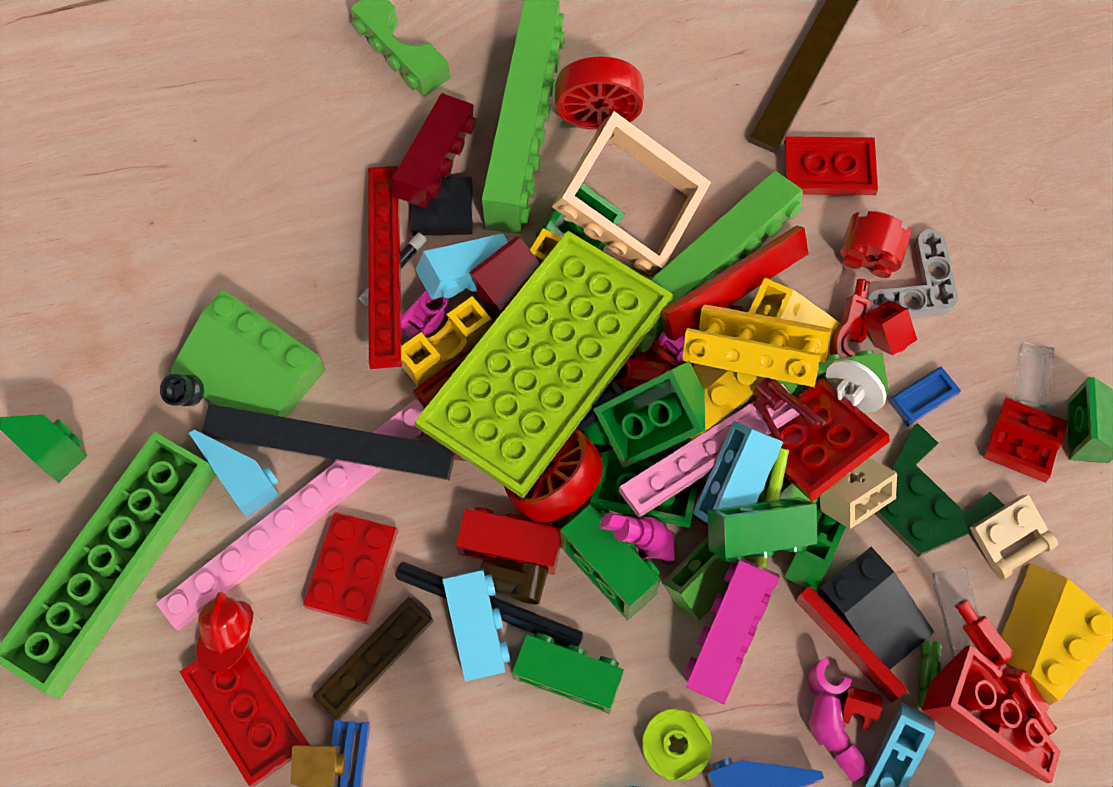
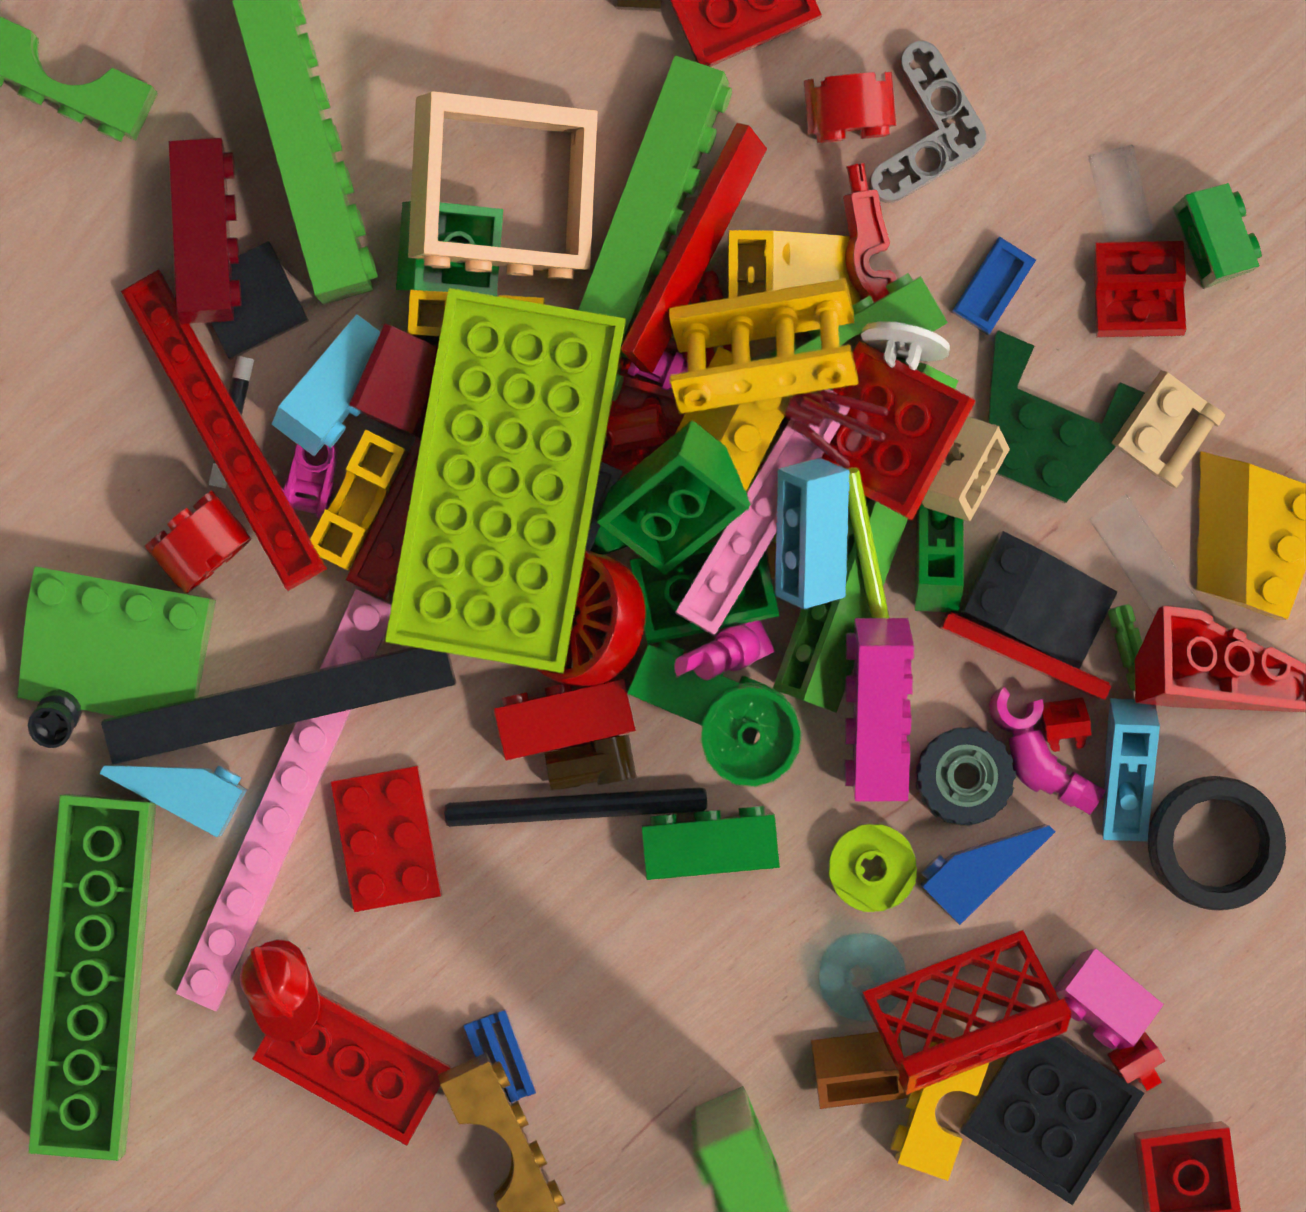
camera: 25 degrees left, 20 degrees up
(332, 321) = (198, 542): none -> red brick
(373, 658) = (470, 932): dark brown tile -> none
(476, 624) = (575, 841): medium azure brick -> none
(596, 88) = (389, 50): red piece -> none
(633, 611) = (747, 707): none -> green wheel
(762, 528) = (867, 582): brick -> none
(784, 692) = (992, 769): none -> black wheel
(890, 327) = (916, 218): red brick -> none
(995, 649) = (1201, 596): red piece -> none

